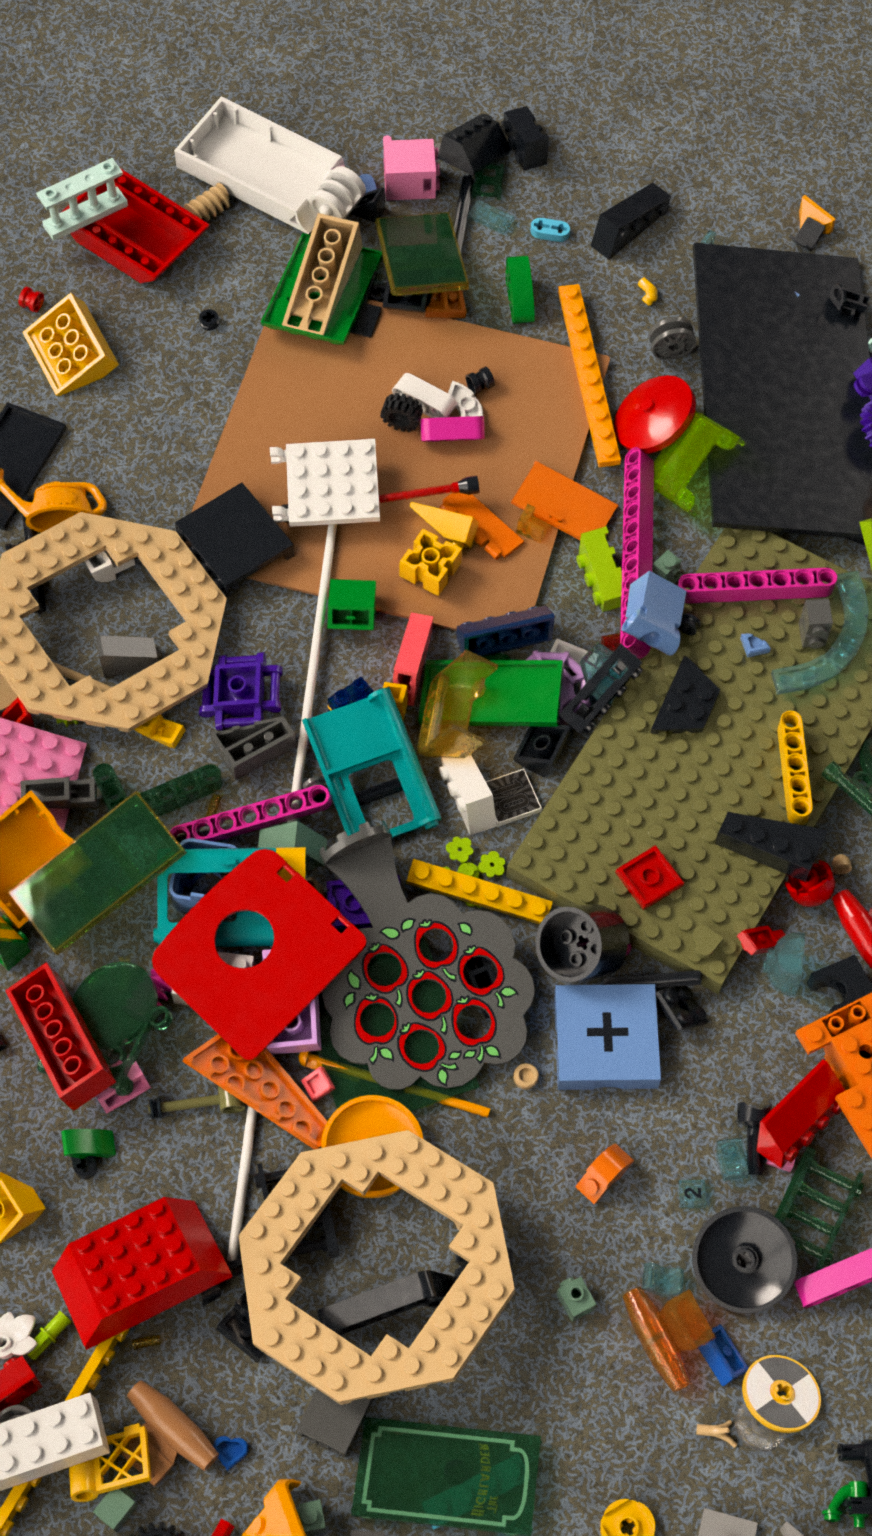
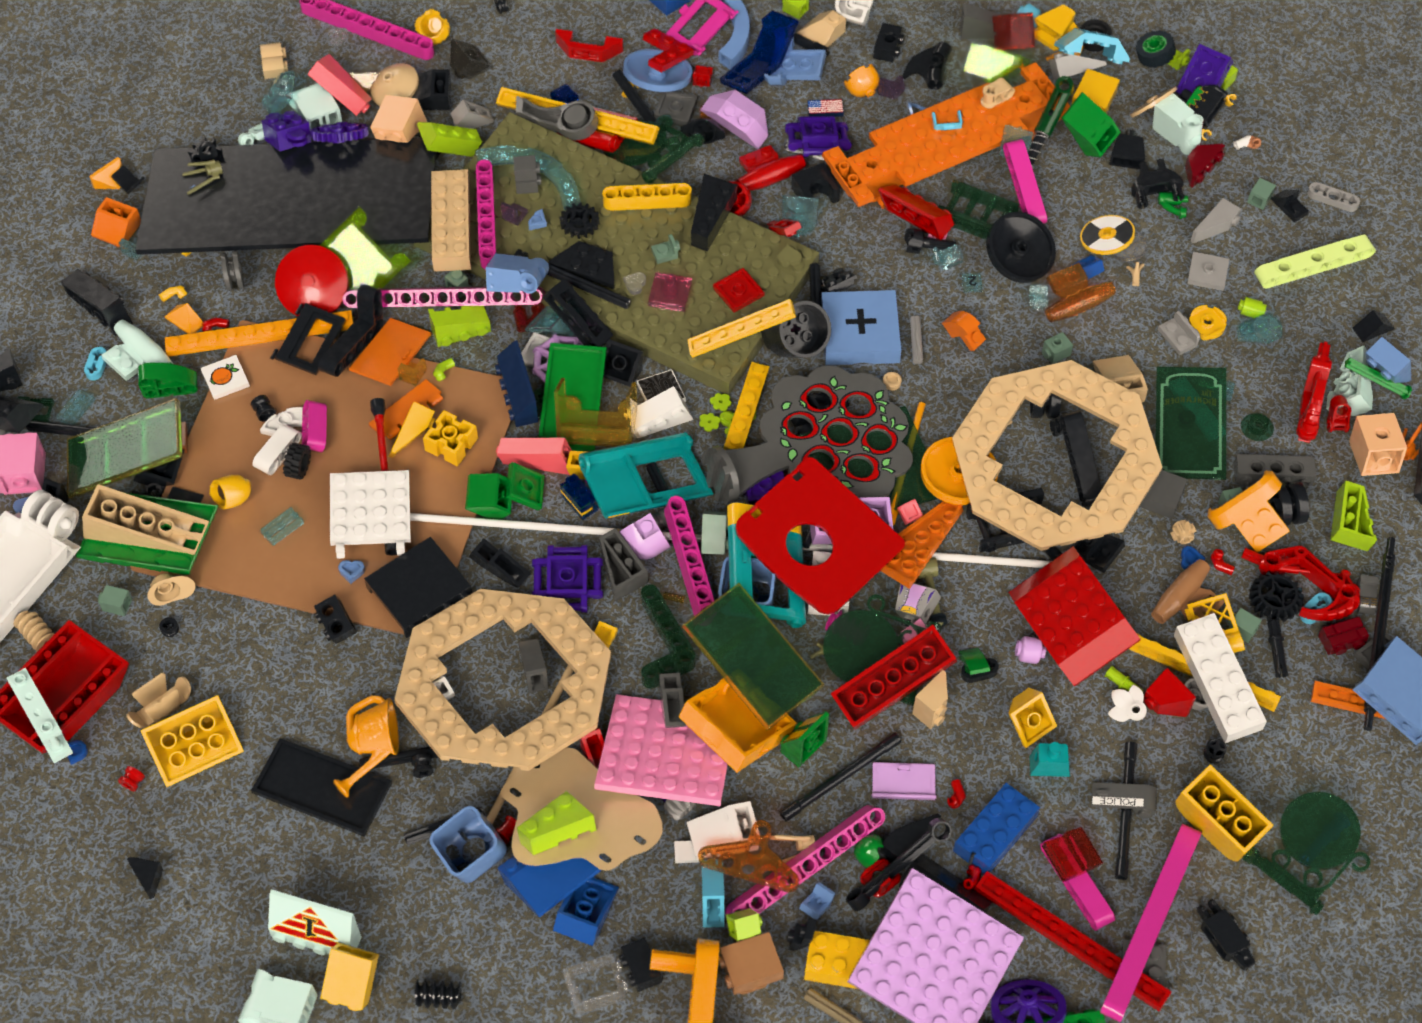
camera: 90 degrees left, 5 degrees down
(31, 1087) = (932, 701): none -> tan slope
(71, 254) = (79, 751): none -> blue tile
(100, 1213) = (1030, 650): none -> lavender head
(107, 311) = (158, 701): none -> tan piece
(173, 1078) = (916, 603): none -> light grey torso
(200, 463) = (338, 617): none -> black brick
(219, 1490) = (1219, 564): none -> red arm
(241, 269) = (115, 600): none -> sand green brick
(251, 310) = (170, 588): none -> tan piece
(264, 477) = (351, 570): none -> medium blue tile
(266, 622) = (499, 563): none -> black slope
(266, 1441) = (1183, 532): none -> tan gear
(286, 768) = (645, 538): none -> lavender brick
(328, 410) = (279, 524): none -> clear light blue tile
(365, 355) = (235, 491): none -> yellow piece
(367, 644) = (525, 486): none -> green tile
(522, 1381) = (1123, 372): none -> tan slope
(526, 344) = (225, 377): none -> white tile
(538, 554) = (441, 368): none -> lime arm
(560, 261) = (136, 350): none -> light aqua plate
(568, 867) = (741, 328): none -> yellow tile
(575, 462) = (358, 334): none -> black beam
(584, 407) = (299, 332): none -> black piece
(593, 1111) = (916, 339): none -> light grey axle
(603, 327) = (215, 322): none -> red arm
(605, 1481) = (1180, 333): none -> light grey bracket
(612, 306) = (185, 318): none -> light orange slope
(644, 796) = (670, 292): none -> clear pink tile
(653, 696) = (589, 287): none -> black axle
(658, 755) = (635, 282): none -> clear tile
(709, 791) = (666, 251): none -> sand green bracket
(742, 226) = (115, 221): none -> orange slope
(743, 545) = (451, 220): none -> tan brick
(751, 689) = (579, 220): none -> black gear
(757, 613) = (510, 213): none -> bracket
(819, 307) = (212, 168): none -> olive plant

